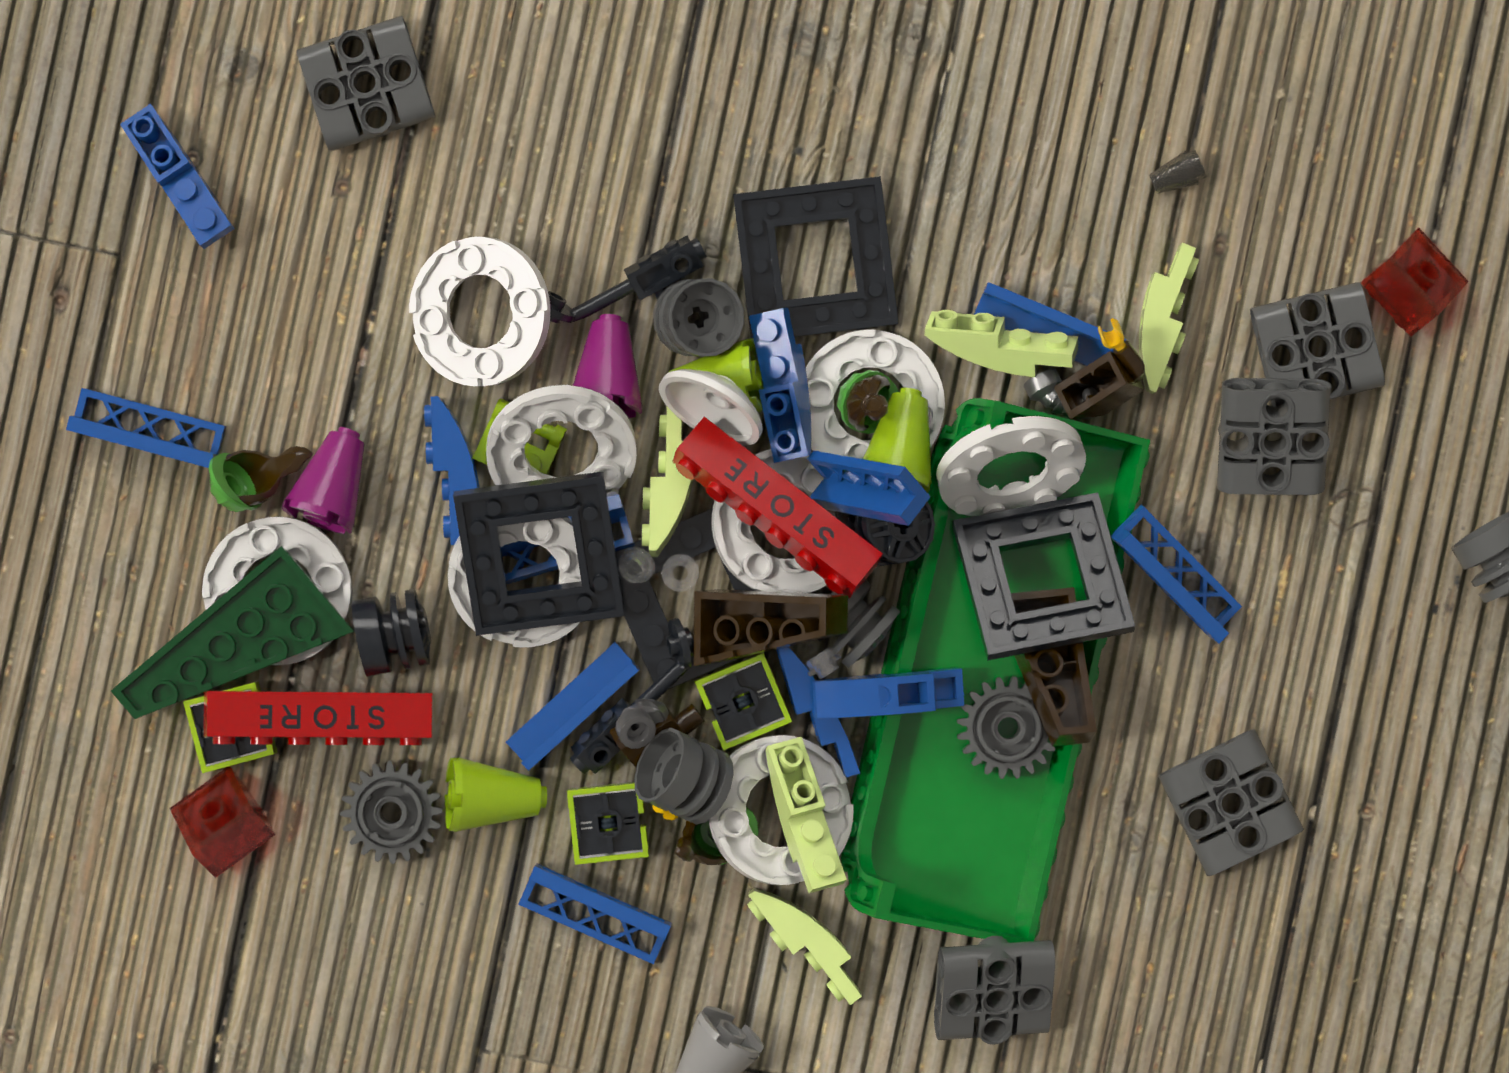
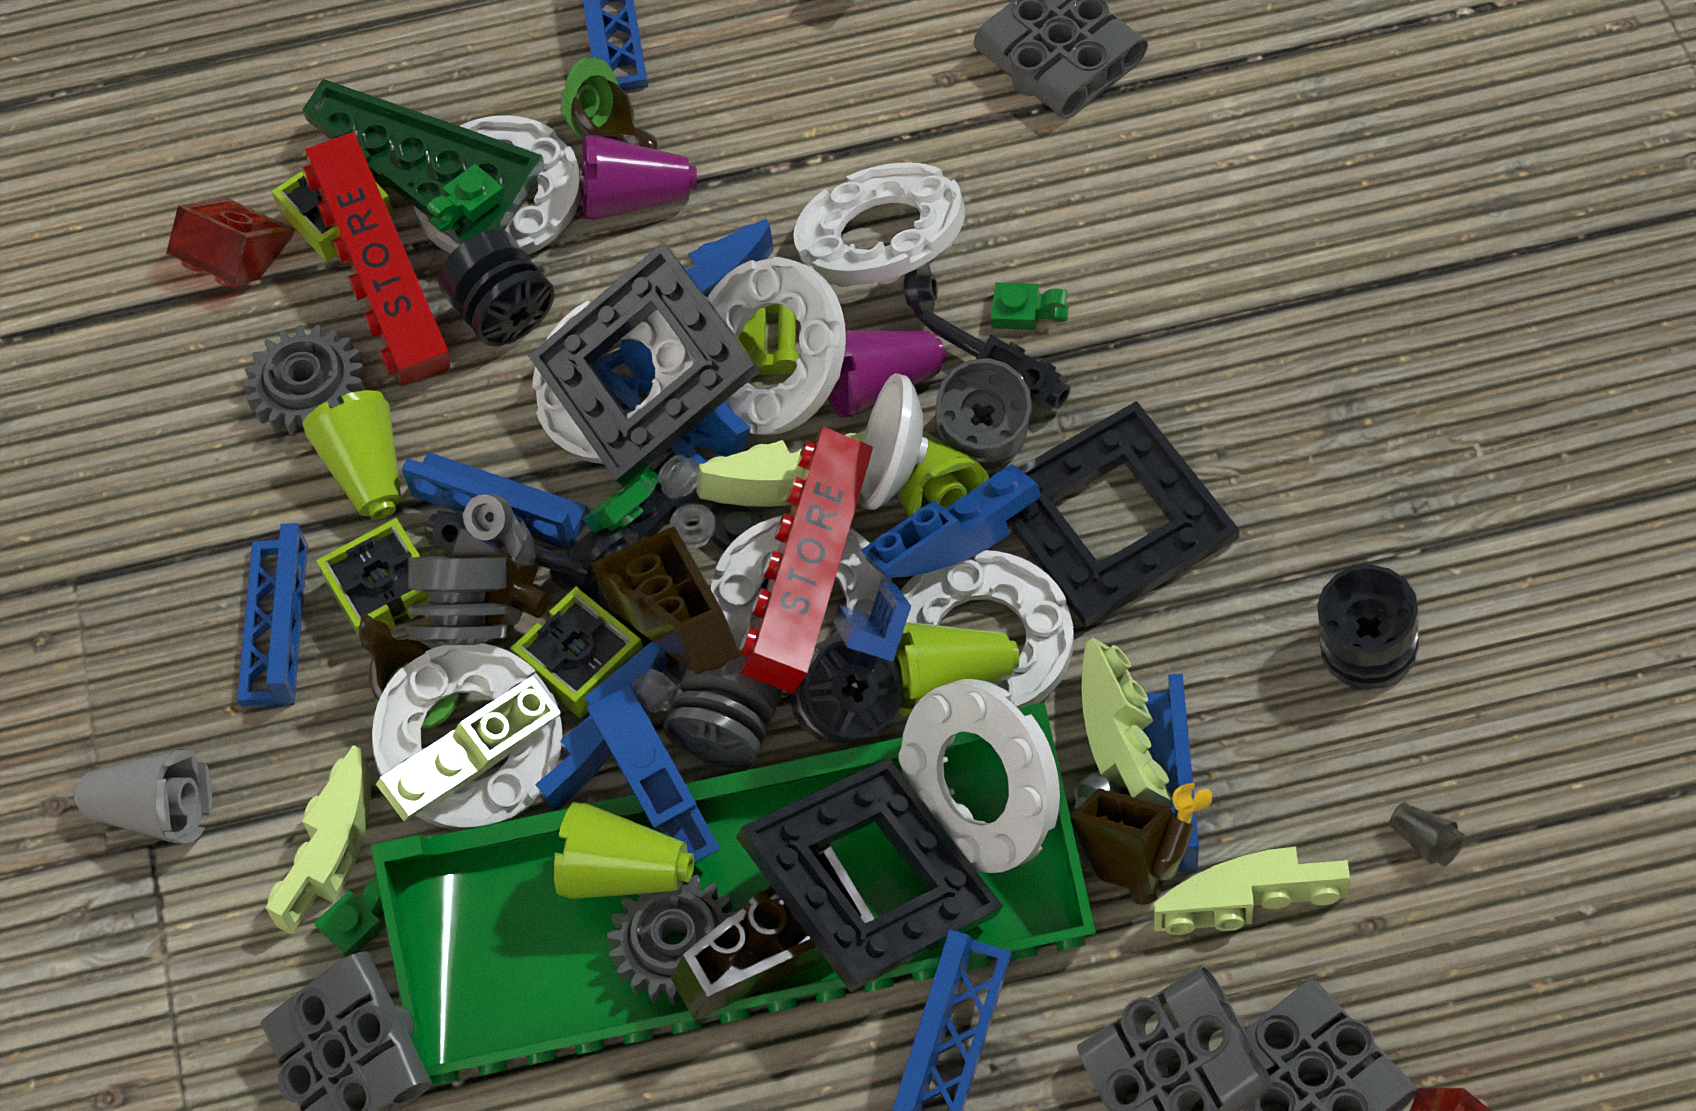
camera: 70 degrees right, 30 degrees down
(298, 619) = (466, 195): none -> green plate
(596, 236) = (1022, 304): none -> green plate
(648, 617) = (624, 503): none -> green wing
(865, 400) = (982, 607): dark brown piece -> none
(876, 945) = (352, 920): none -> green plate
(943, 743) = (616, 856): none -> lime cone
(1024, 112) = (1368, 626): none -> black wheel

